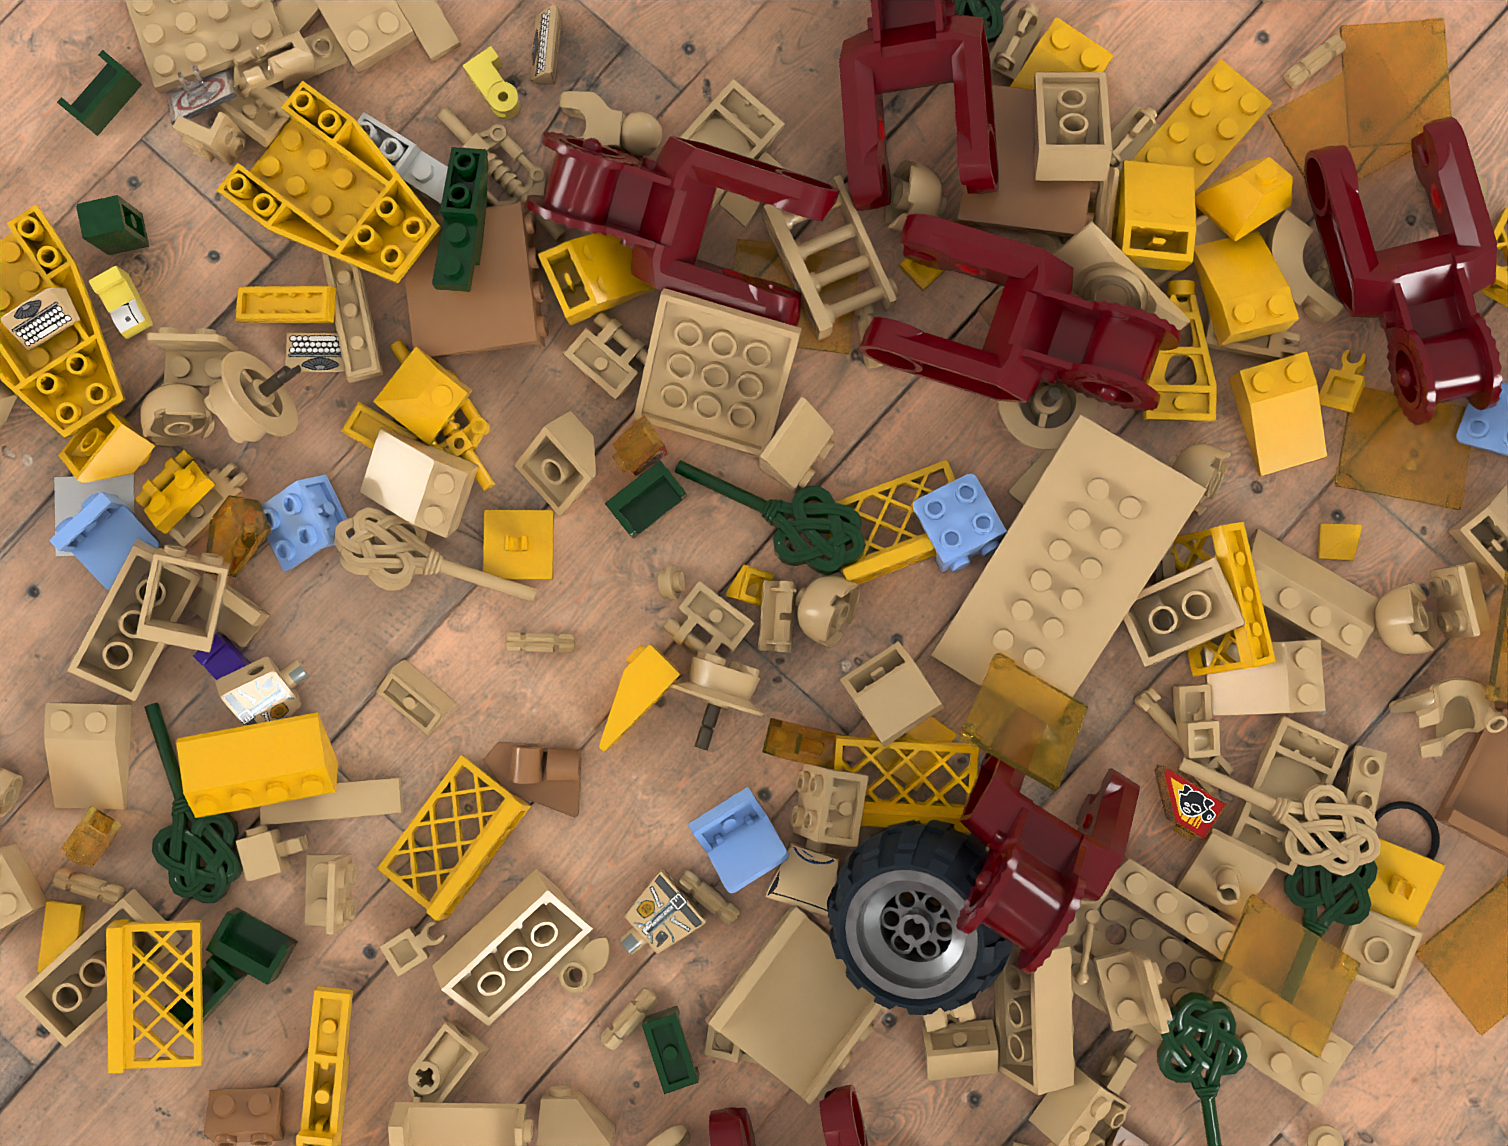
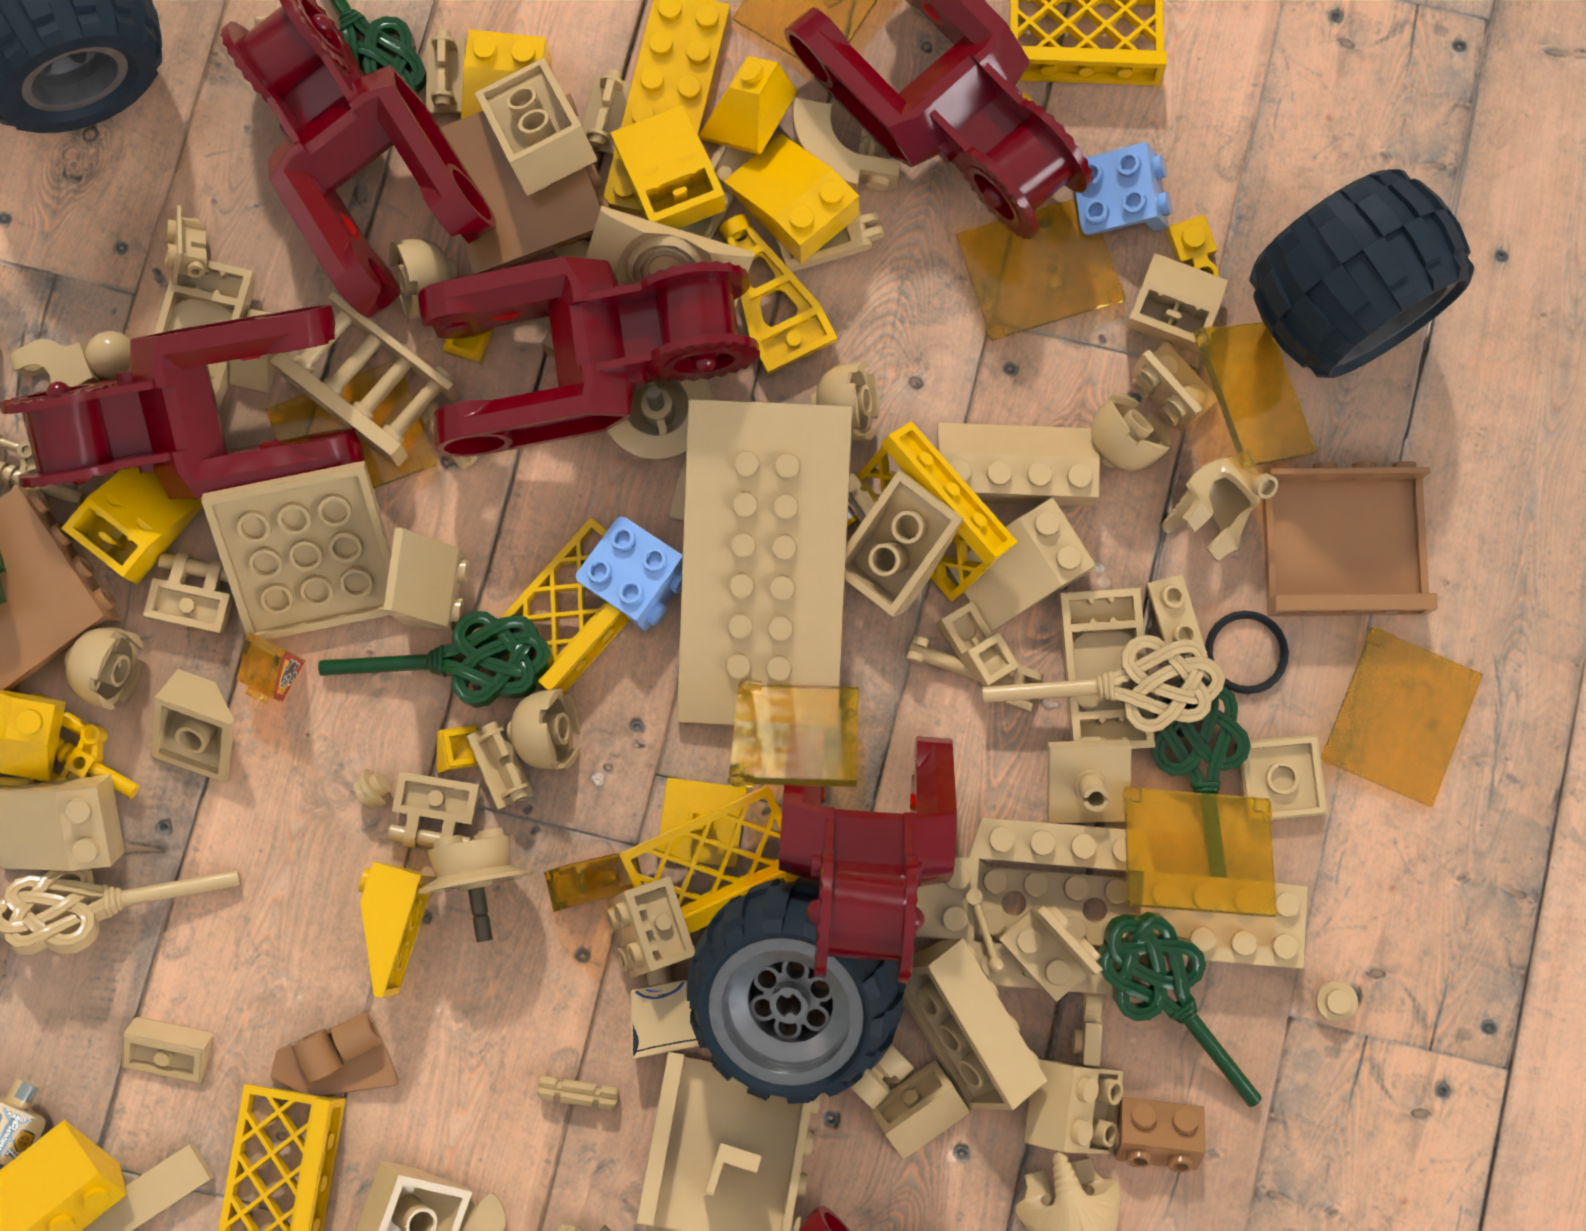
camera: 30 degrees left, 5 degrees down
(515, 377) = (104, 666): none -> tan cylinder
(519, 544) = (196, 833): yellow piece -> none
(540, 642) = (268, 922): tan axle -> none
(646, 499) = (303, 718): dark green panel -> none
(661, 916) = (536, 1138): torso -> none
(739, 840) = (575, 1014): light blue bracket -> none
(743, 76) = (185, 246): none -> tan hinge
(797, 1010) = (733, 1158): none -> tan panel
(891, 693) = (653, 780): tan slope -> none
(1107, 202) = (613, 180): tan axle -> none
(1187, 804) = (1013, 733): slope -> none
(1280, 413) = (897, 297): yellow slope -> none
(1338, 541) = (1023, 393): yellow slope -> none
(1344, 386) = (945, 240): yellow plate -> none
(1403, 883) = (1268, 696): yellow piece -> none

